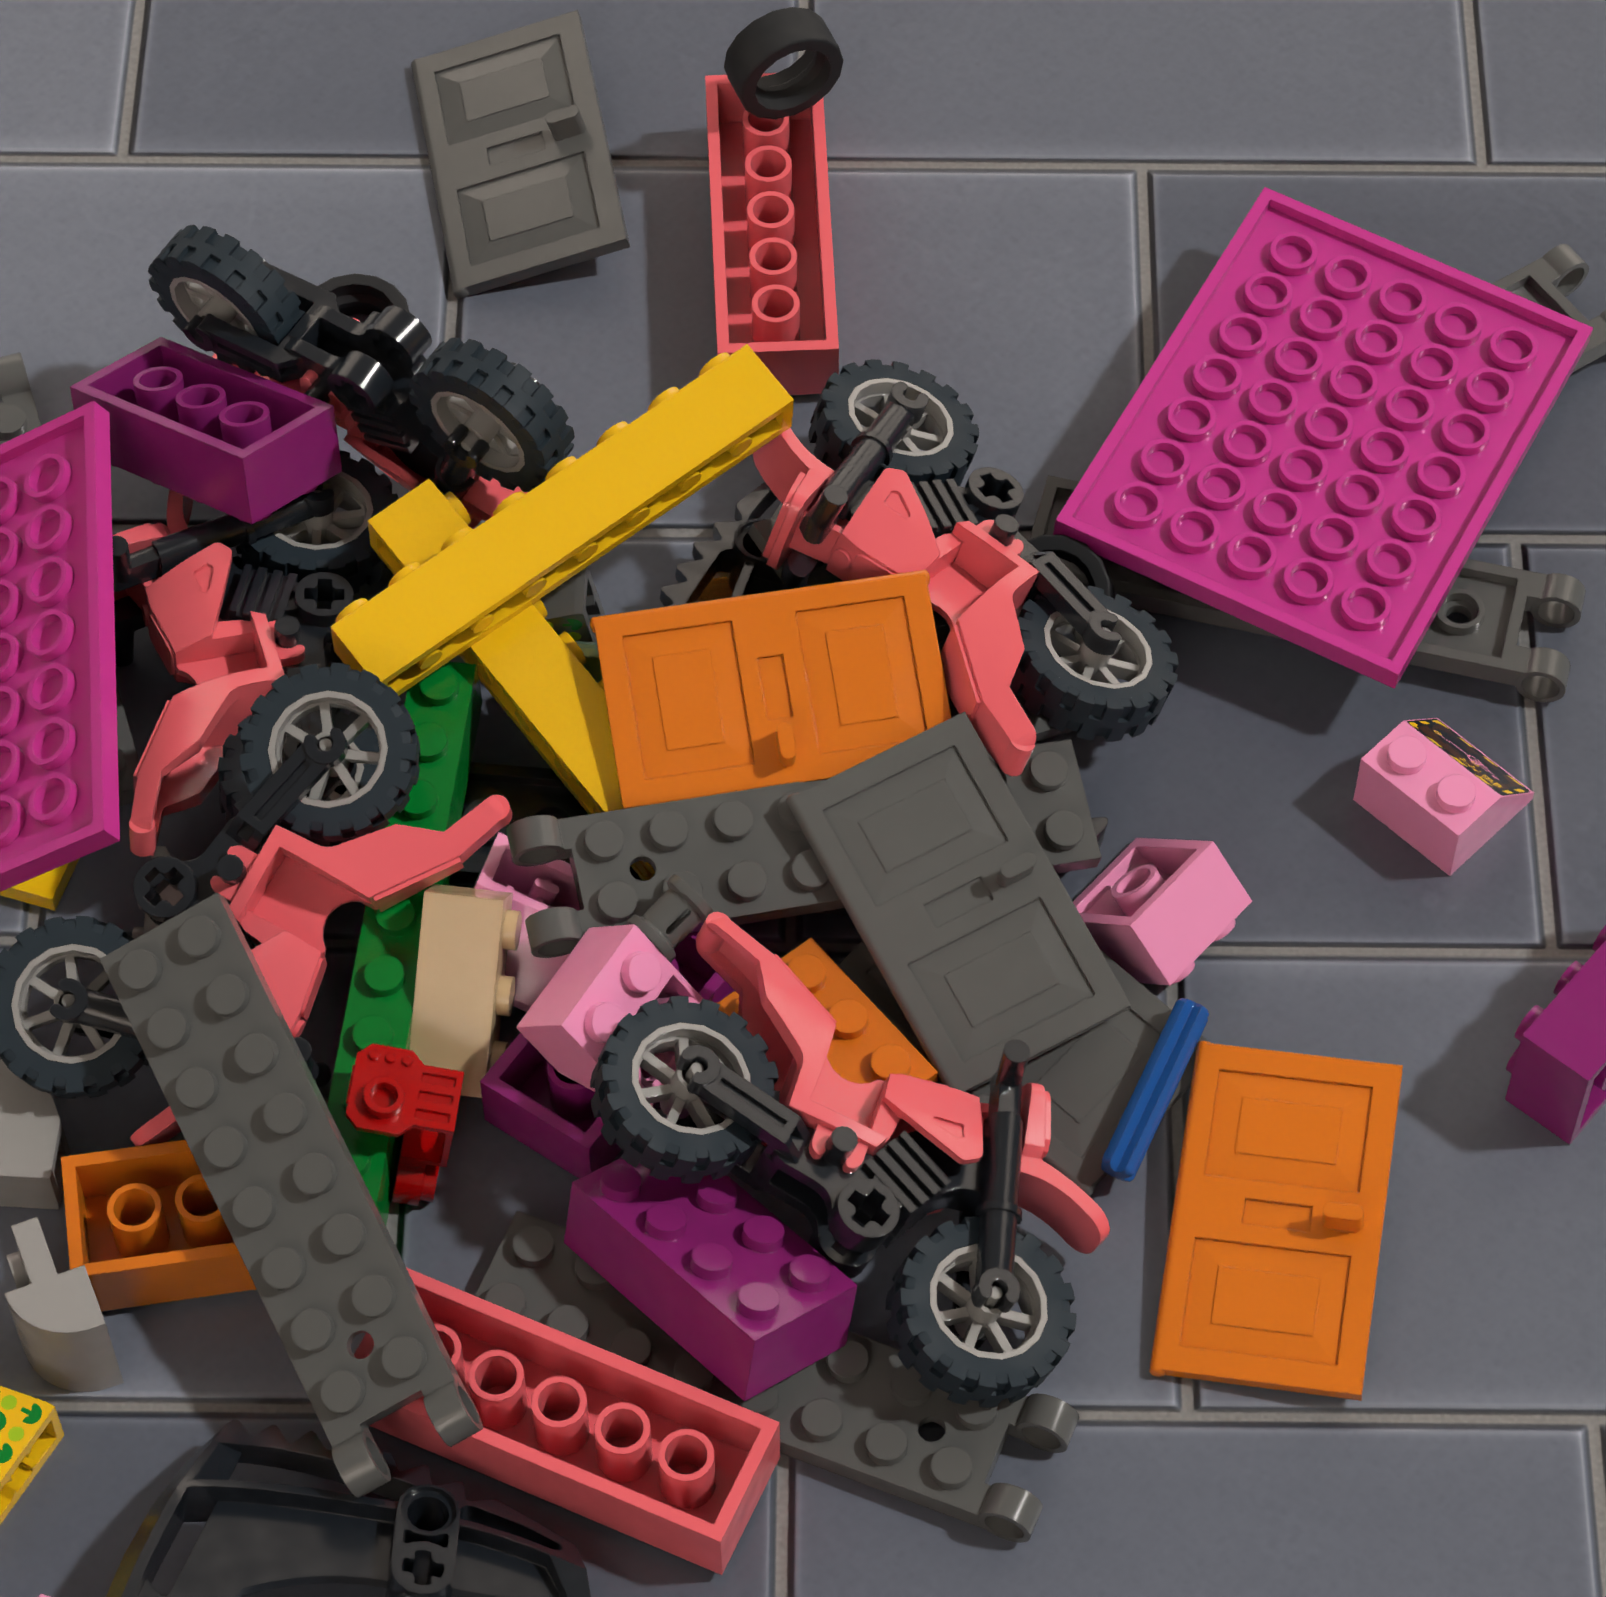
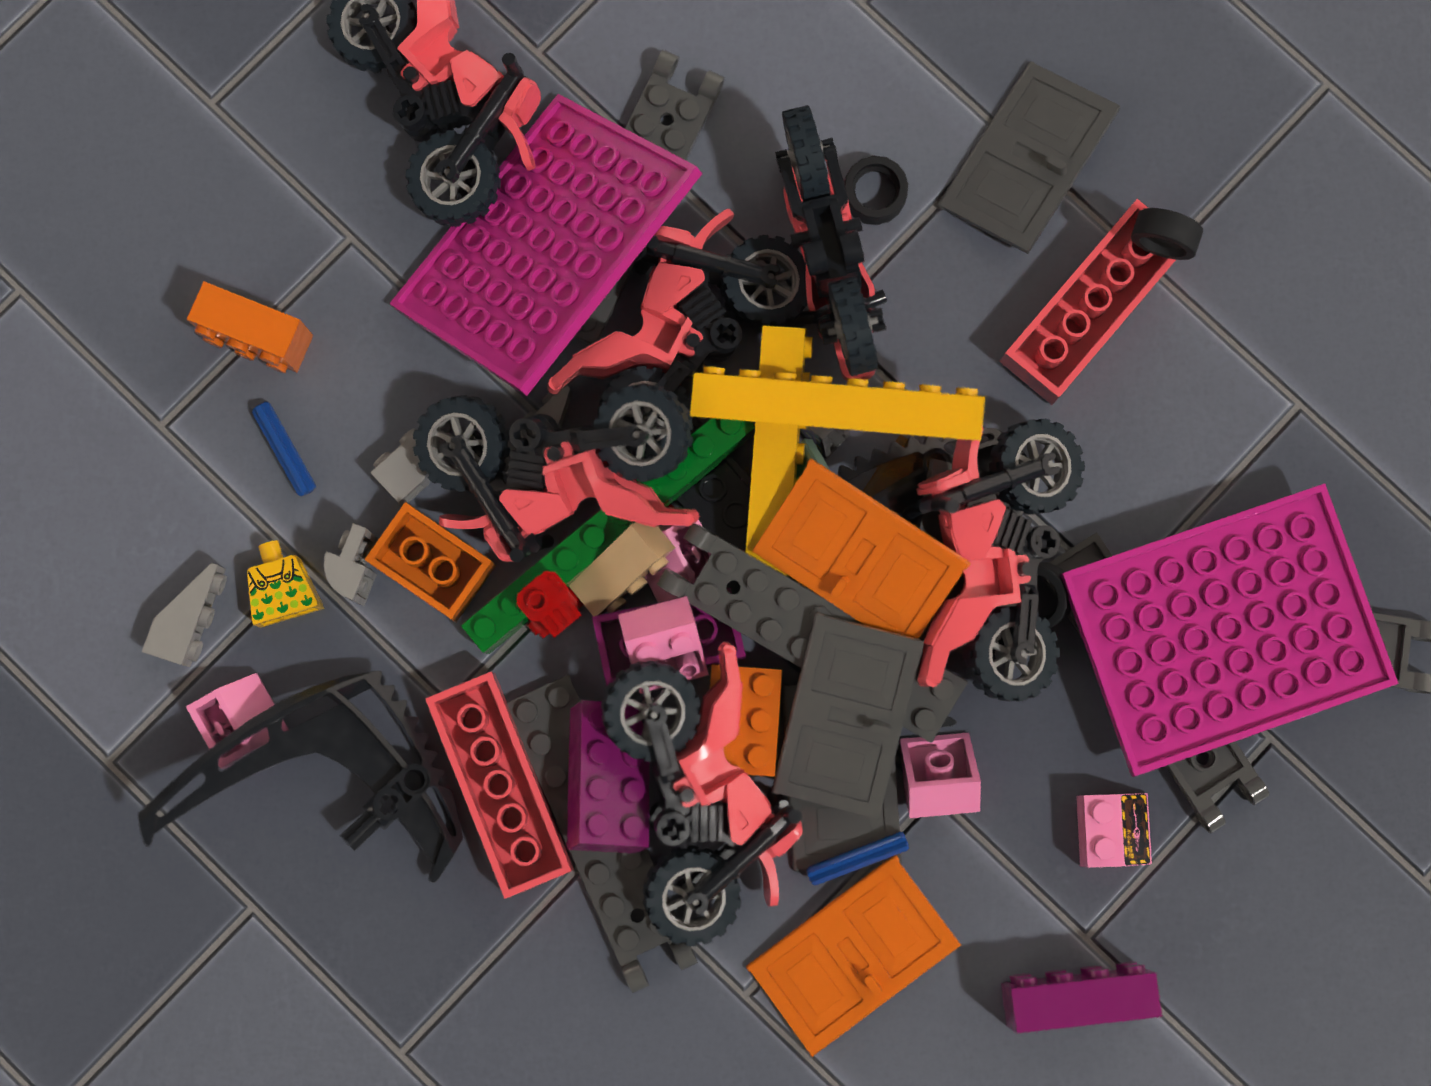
camera: 40 degrees right, 25 degrees up
(213, 429) = (745, 209): magenta brick -> none
(286, 1185) = (466, 605): dark grey hinge -> none
(672, 916) = (718, 626): dark grey bush -> none

